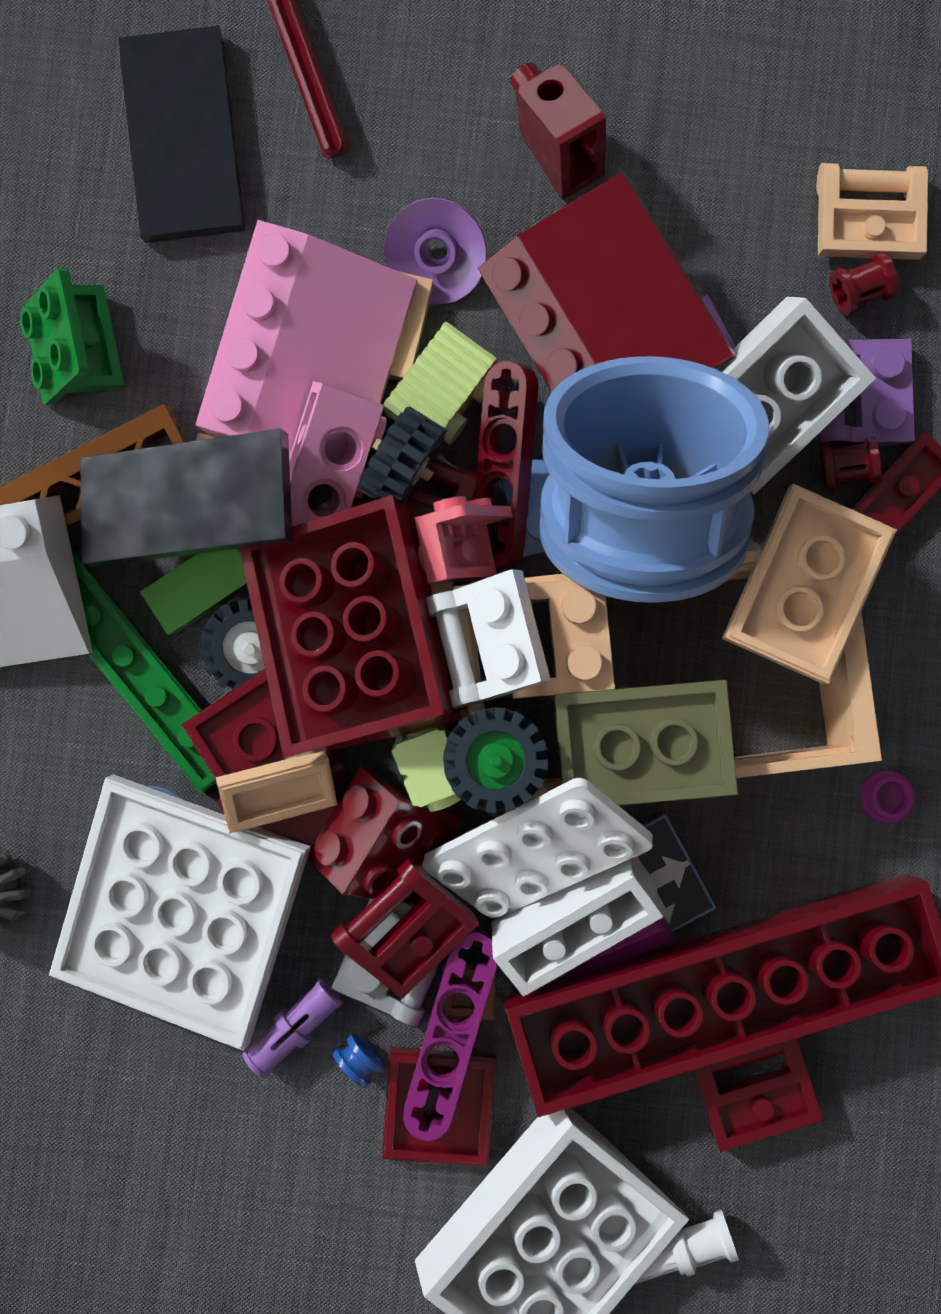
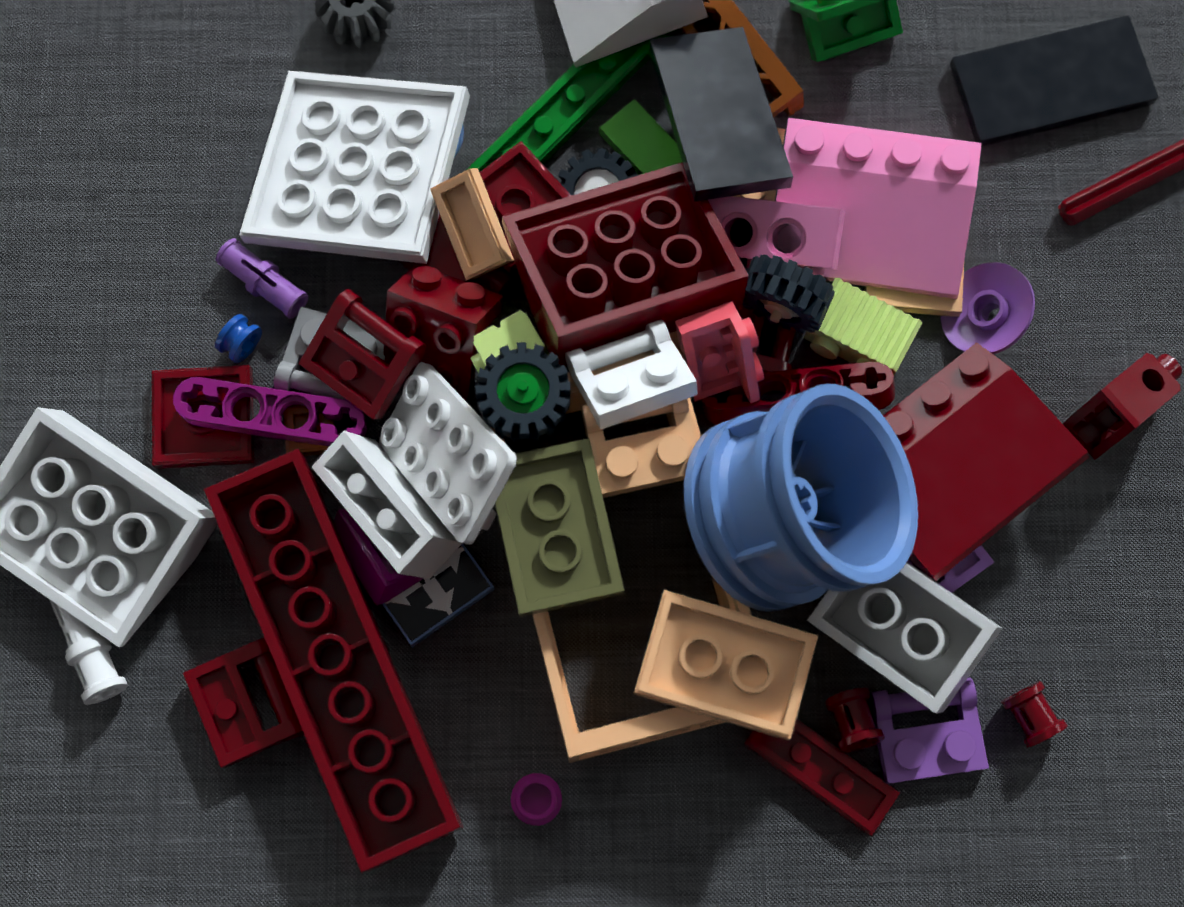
camera: 80 degrees right, 10 degrees down
(872, 226) = (1093, 716): light nougat plate -> none

